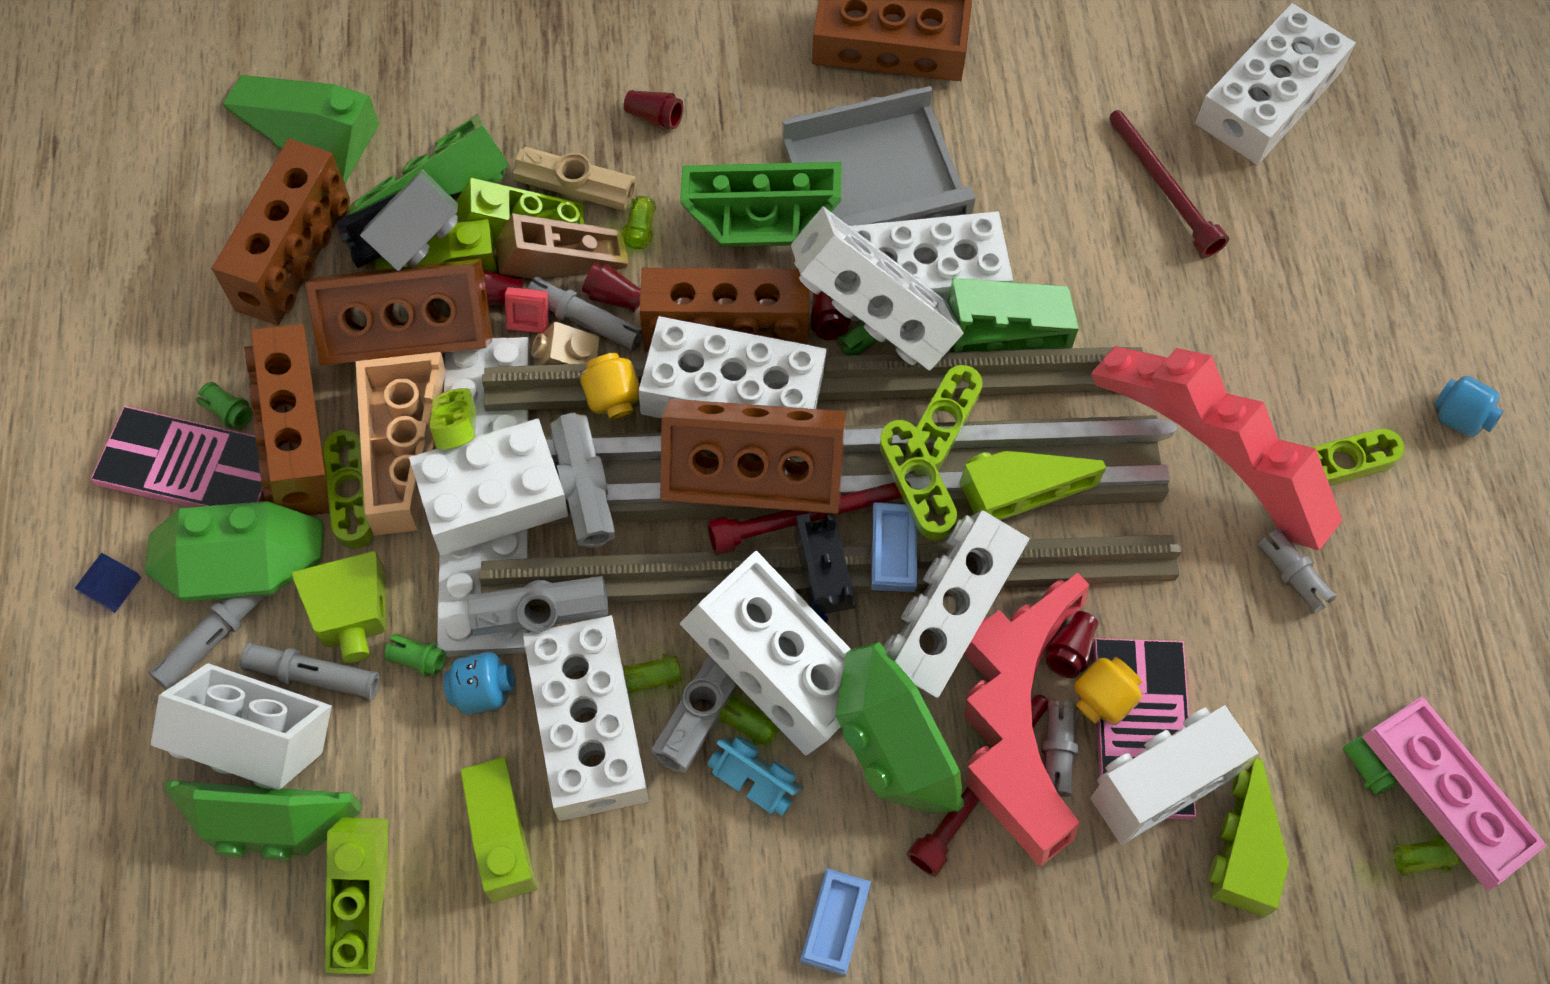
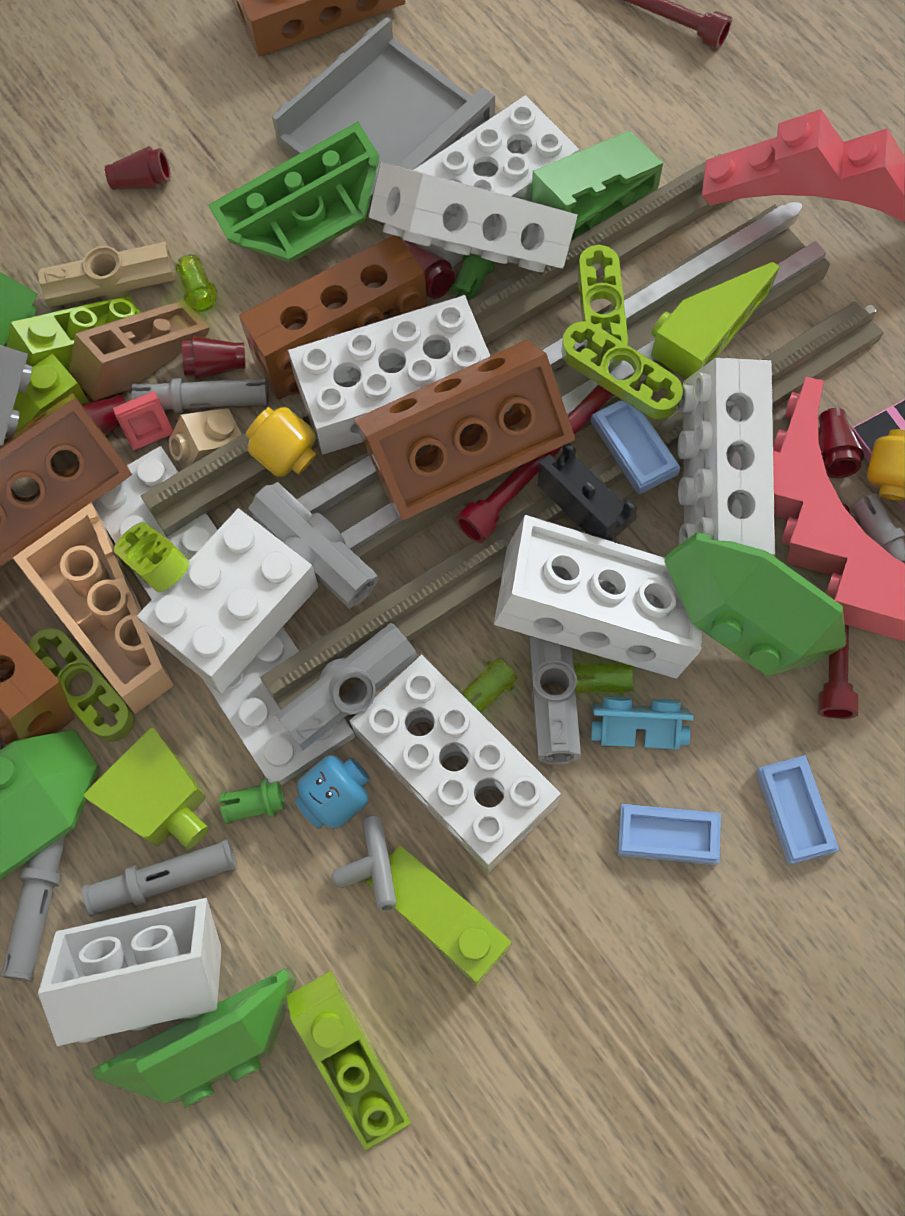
camera: 25 degrees left, 5 degrees up
(472, 759) = (374, 865): none -> light grey piece
(719, 877) = (669, 834): none -> light blue tile

